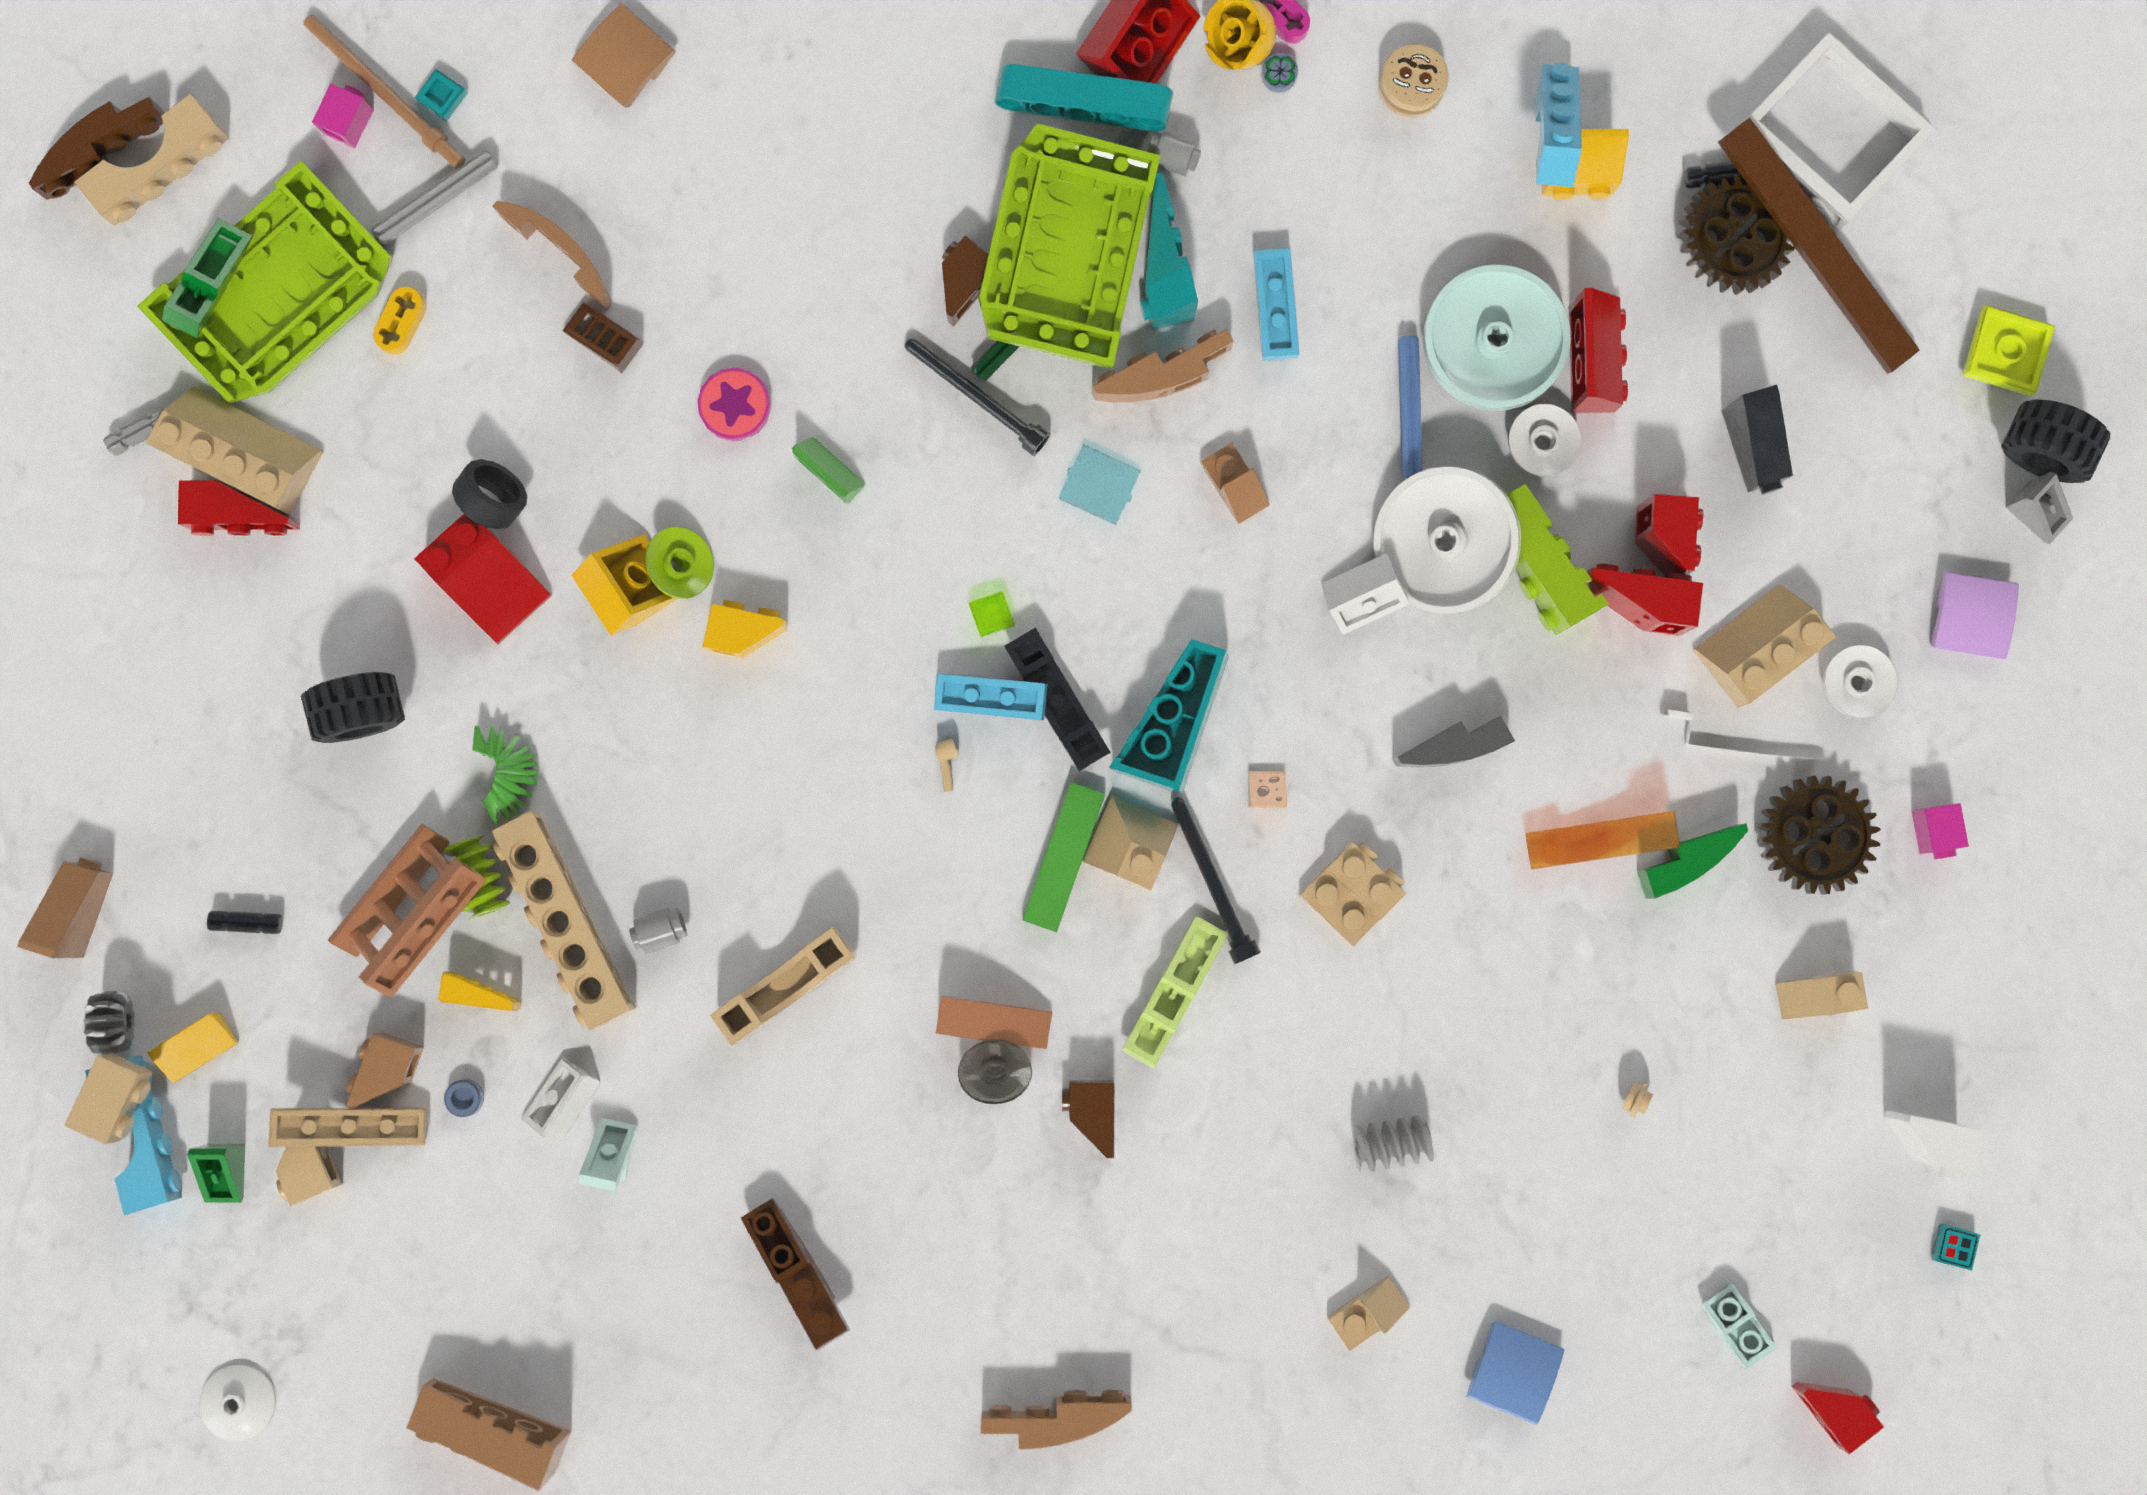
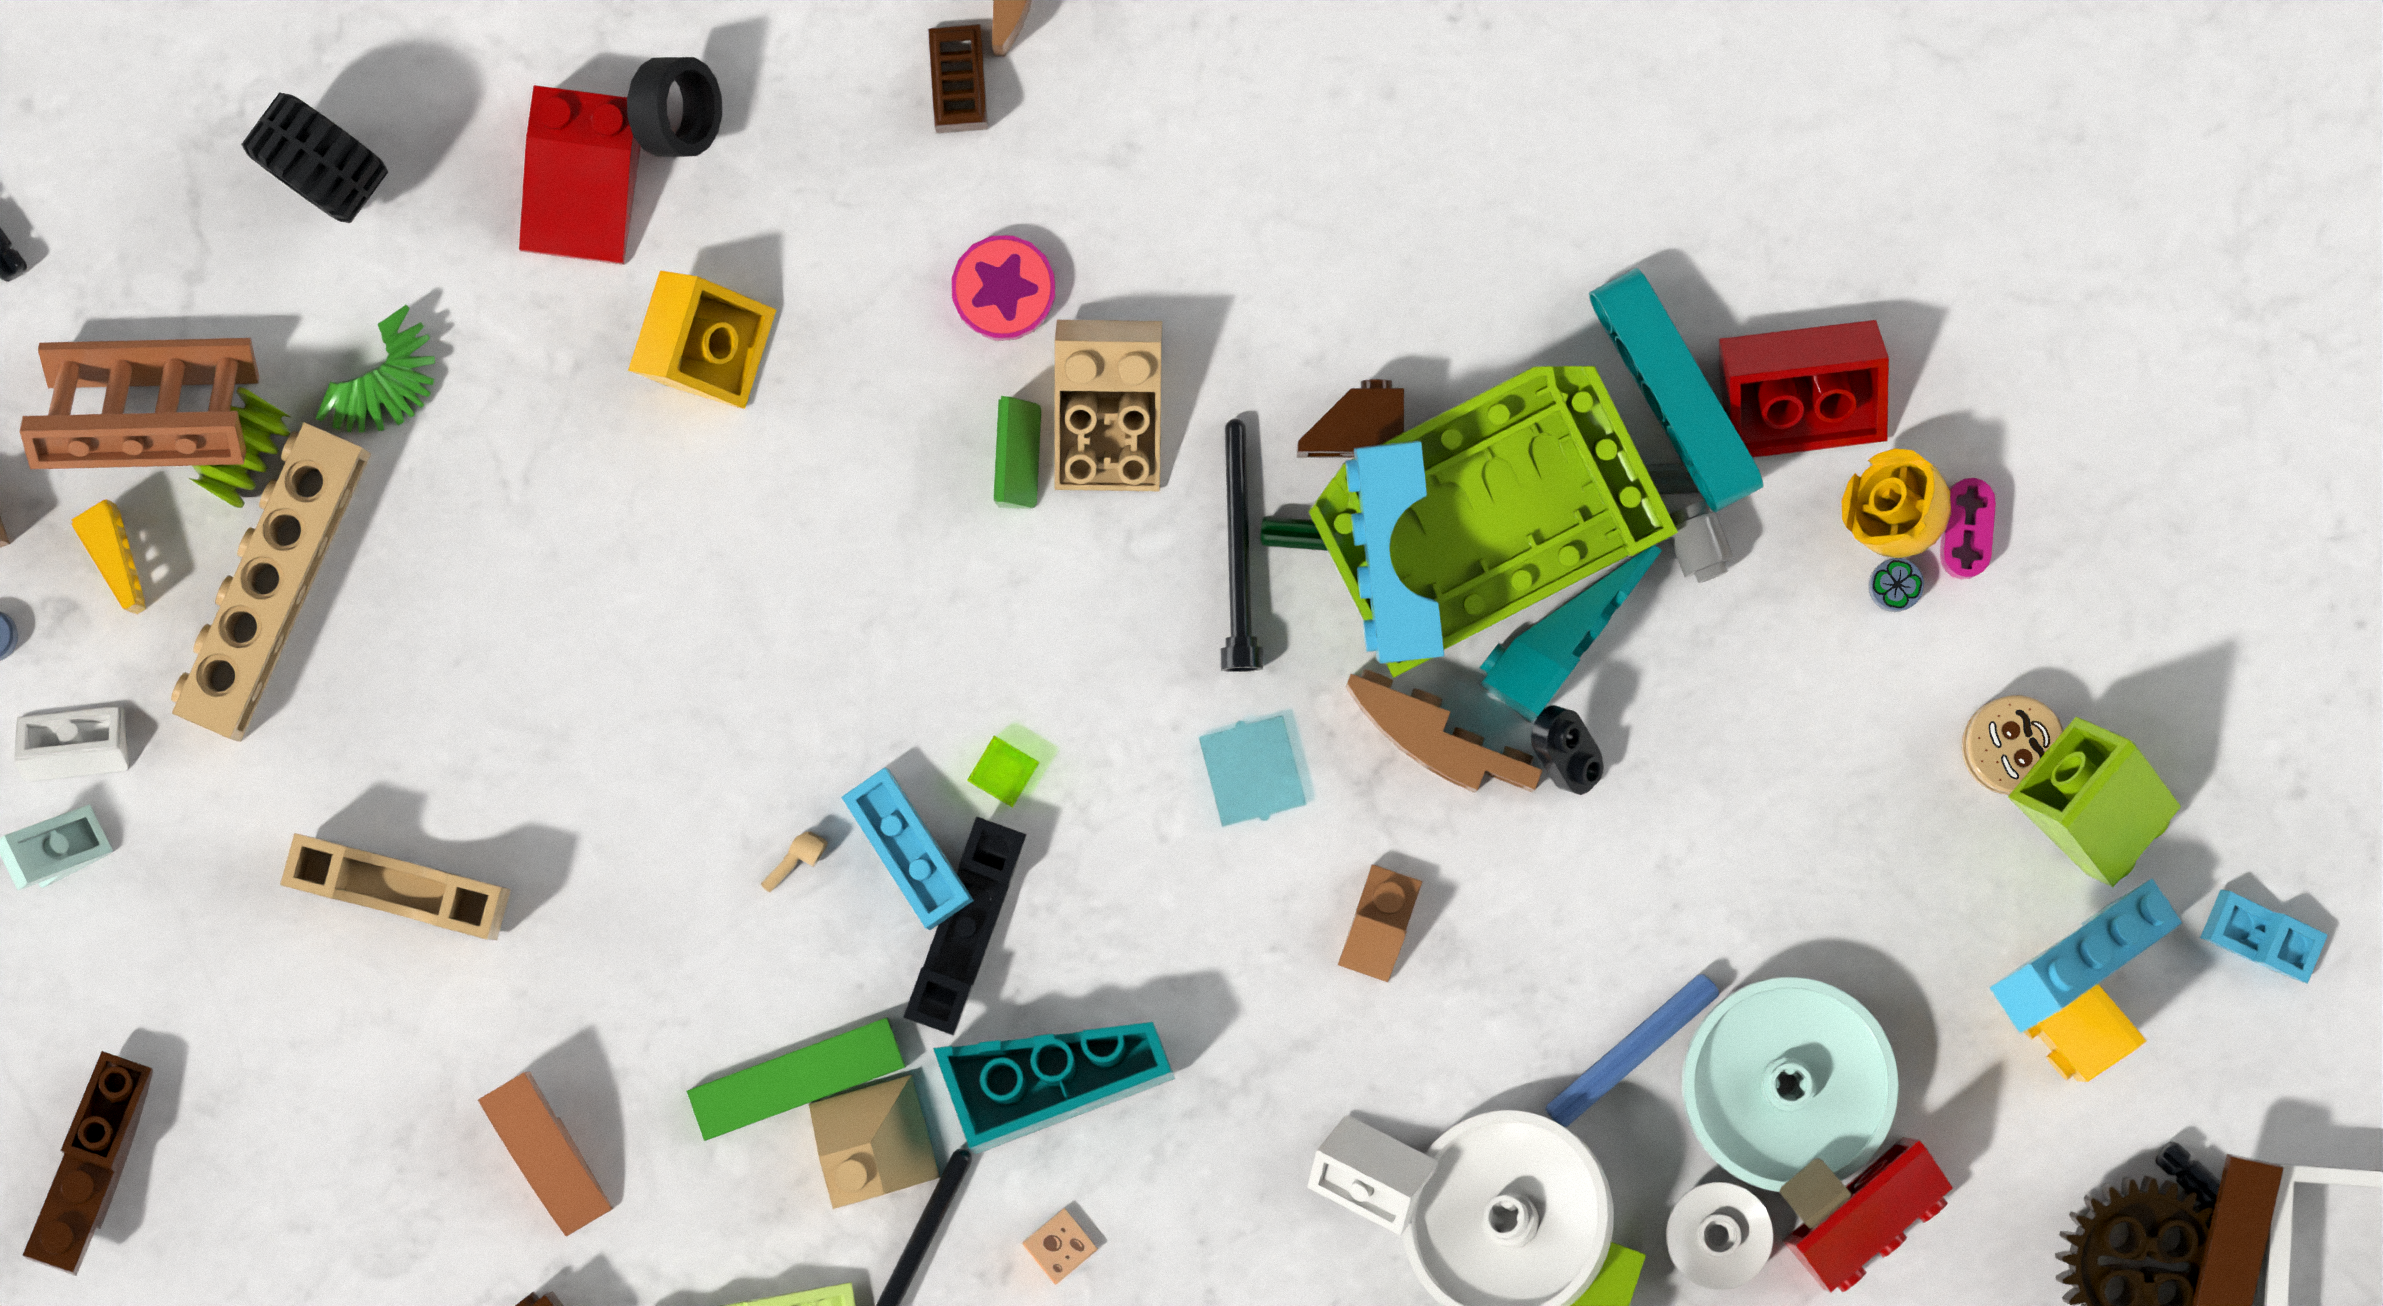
camera: 55 degrees right, 0 degrees up
(658, 930) = (345, 695): light grey brick -> none
(690, 554) = (790, 389): lime dish -> none
(739, 631) = (750, 508): yellow slope -> none
(843, 399) = (1108, 405): none -> tan slope
(997, 1083) = (478, 1209): clear smoke dish -> none
(1009, 280) = (1389, 482): none -> medium azure arch
(1226, 308) = (1567, 750): none -> black plate
(1276, 304) = (1623, 801): medium azure plate -> none
(1478, 56) = (2096, 800): none -> lime slope
(1566, 367) = (1815, 1193): none -> dark tan slope
(1617, 37) = (2264, 936): none -> medium azure slope

